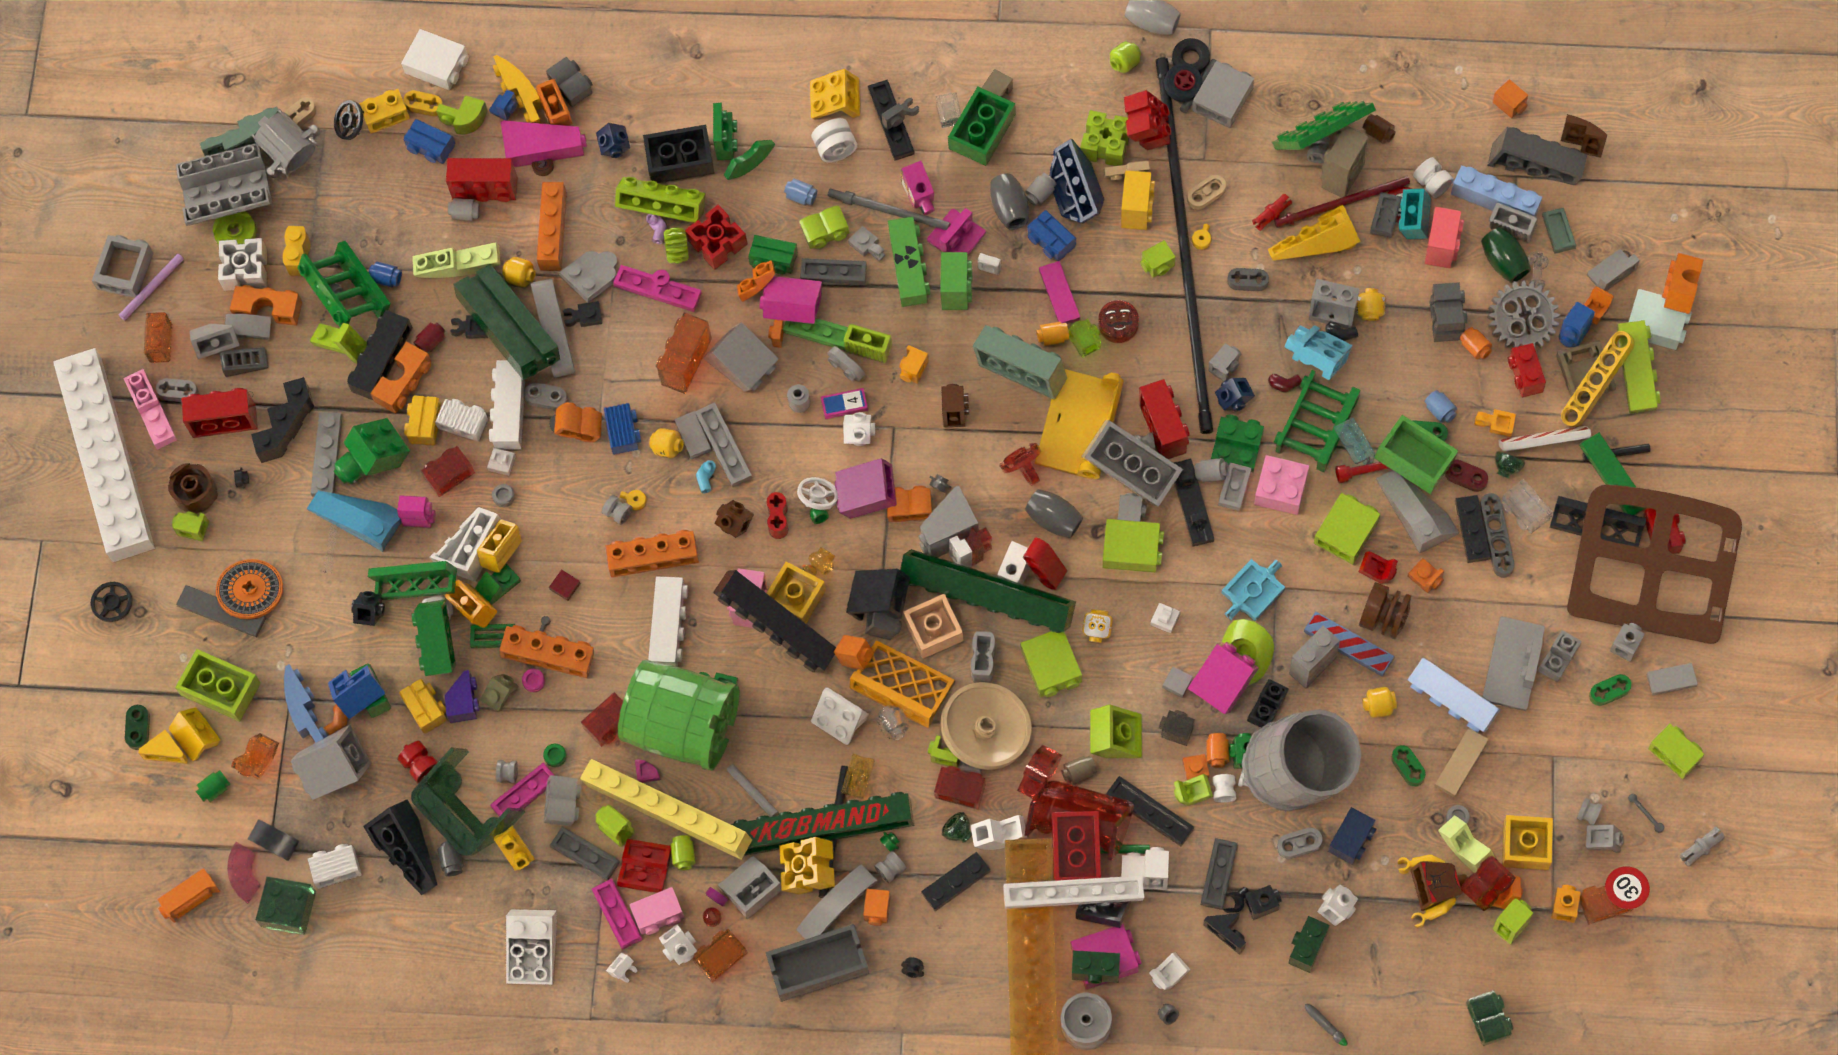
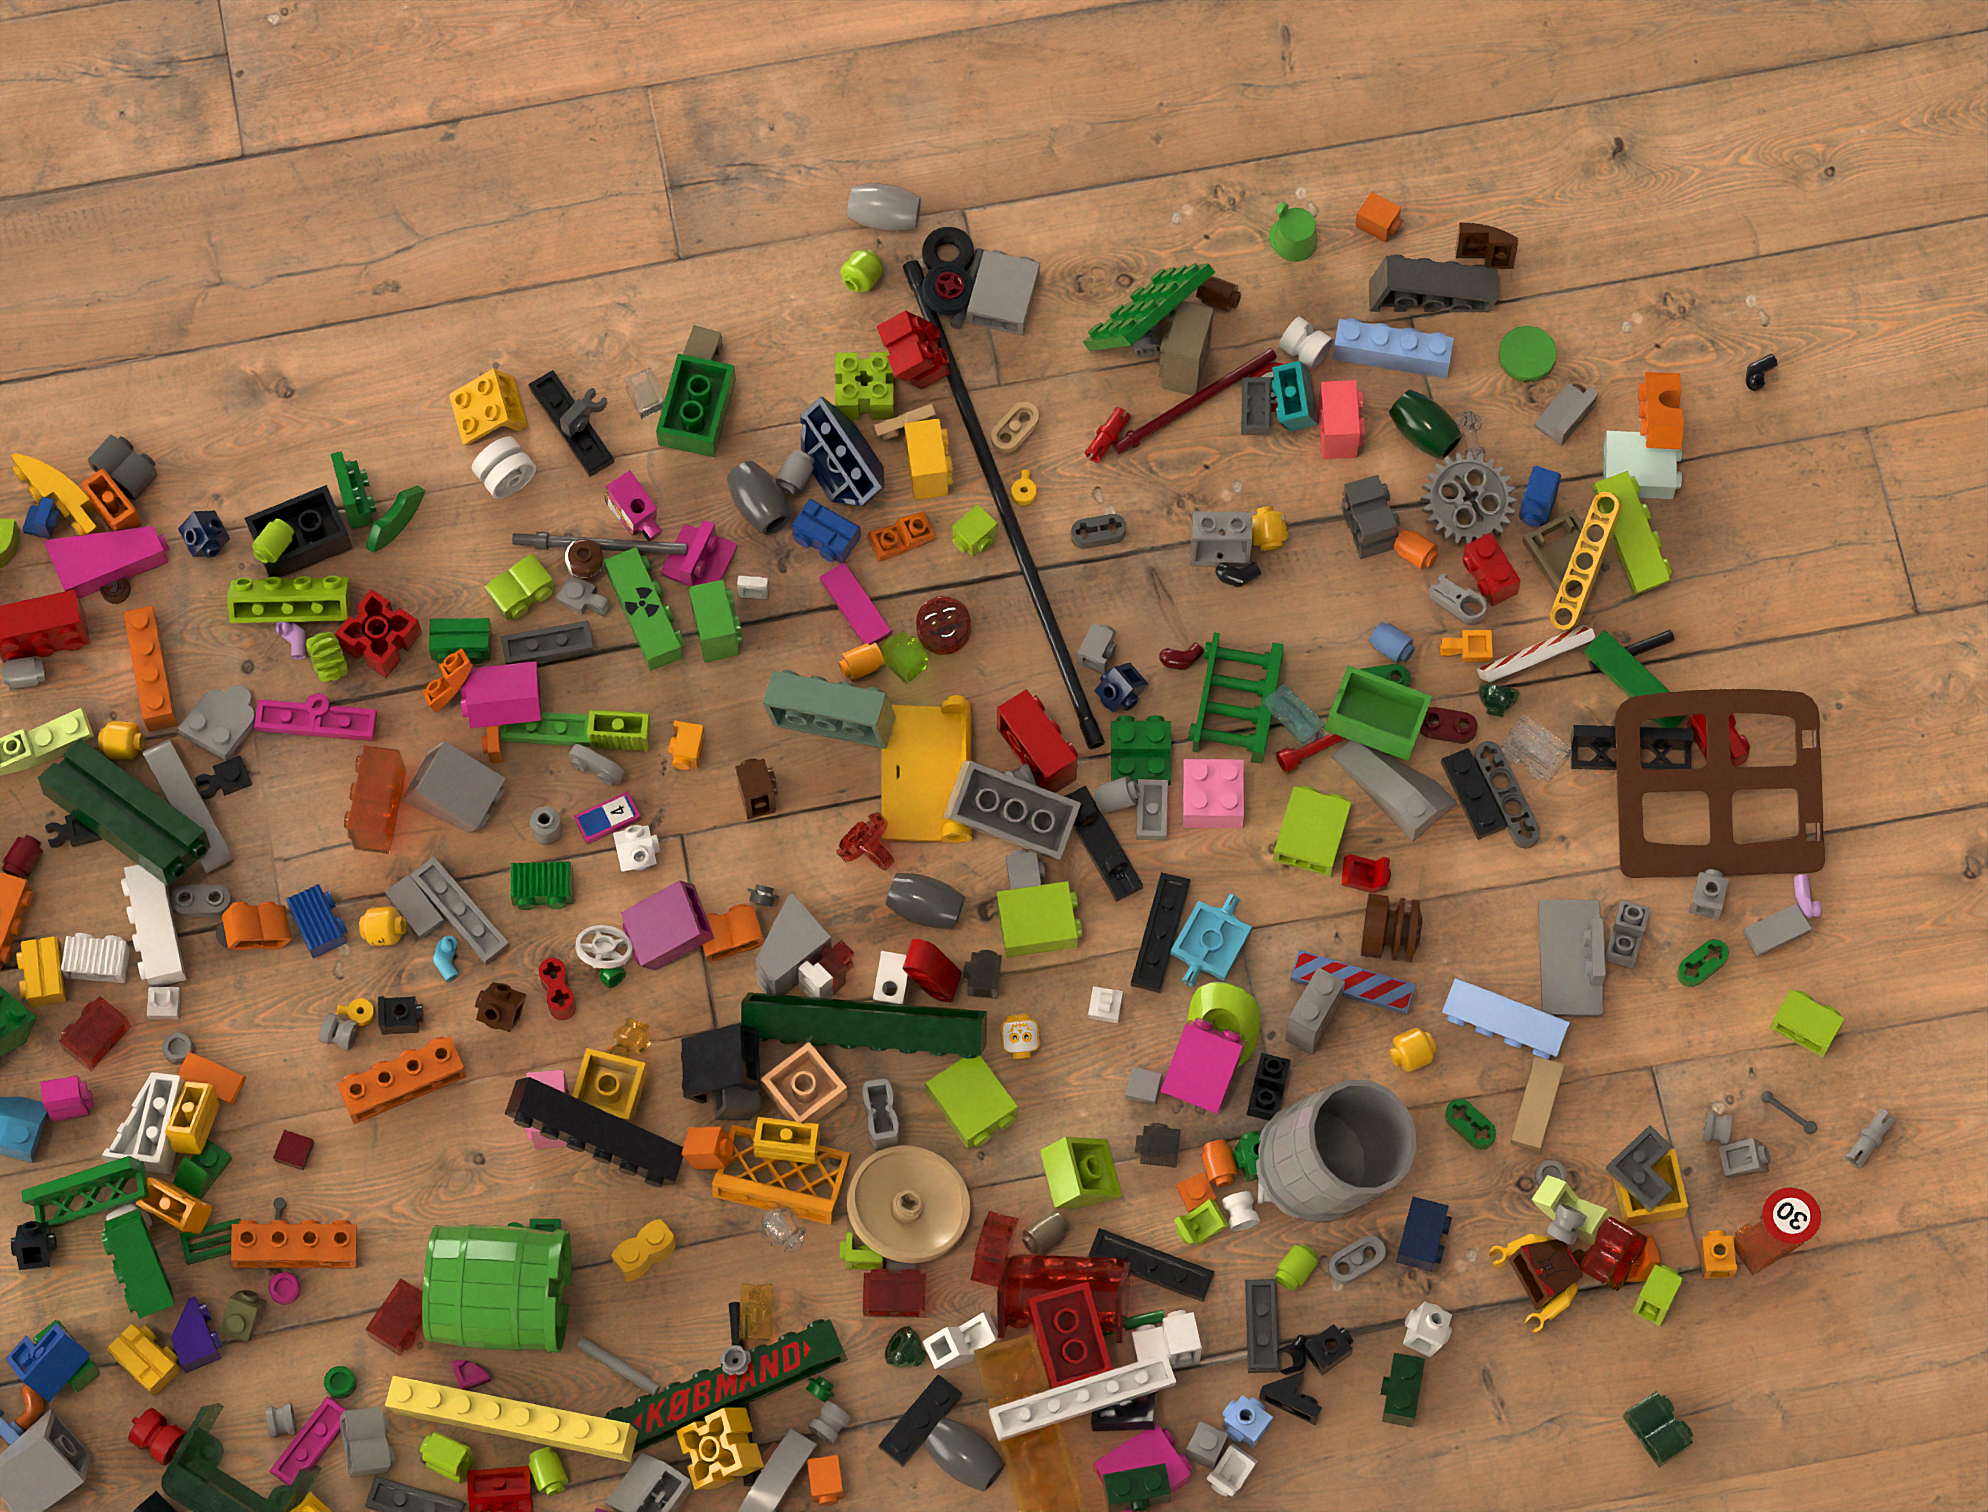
camera: 20 degrees left, 0 degrees up
(528, 526) = (224, 1081): none -> orange slope
(657, 155) = (272, 541): none -> lime brick
(666, 514) = (394, 1024): none -> black brick
(667, 620) = (445, 1165): white brick -> none
(785, 439) = (541, 884): none -> green brick
(785, 715) = (637, 1254): none -> yellow brick
(800, 192) = (475, 547): medium blue brick -> none
(832, 800) = (727, 1360): none -> light grey plate
(838, 716) = (708, 1238): white bracket -> none
(874, 217) = (584, 559): none -> reddish brown head
(910, 659) = (786, 1140): none -> yellow brick
(980, 913) = (964, 1454): none -> dark grey piece
(1082, 575) = (983, 974): none -> clear smoke brick
(1104, 252) = (901, 537): none -> orange slope
(1155, 949) = (1206, 1445): none -> light grey brick
(1192, 945) = (1246, 1431): none -> light blue brick
(1218, 575) = (1160, 932): none -> black tile
(1254, 837) = (1296, 1266): none -> lime brick
(1319, 350) = (1216, 603): medium azure hips -> none
(1326, 1025) = (1451, 1489): dark grey piece -> none
(1330, 234) = (1190, 447): yellow wedge -> none
(1426, 575) = (1430, 869): orange bracket -> none
(1445, 97) = (1294, 233): none -> bright green hat
(1458, 853) = (1566, 1223): none -> light grey wheel
(1495, 385) = (1455, 599): none -> light grey piece
(1513, 221) = (1425, 378): light grey brick -> none
(1518, 826) = (1635, 1172): none -> dark grey plate
(1559, 230) = (1484, 376): sand green tile -> none
(1595, 221) = (1527, 353): none -> bright green tile
(1599, 302) = (1560, 458): orange bracket -> none
(1697, 660) = (1803, 897): none -> lavender arm
(1761, 271) = (1756, 372): none -> black arm

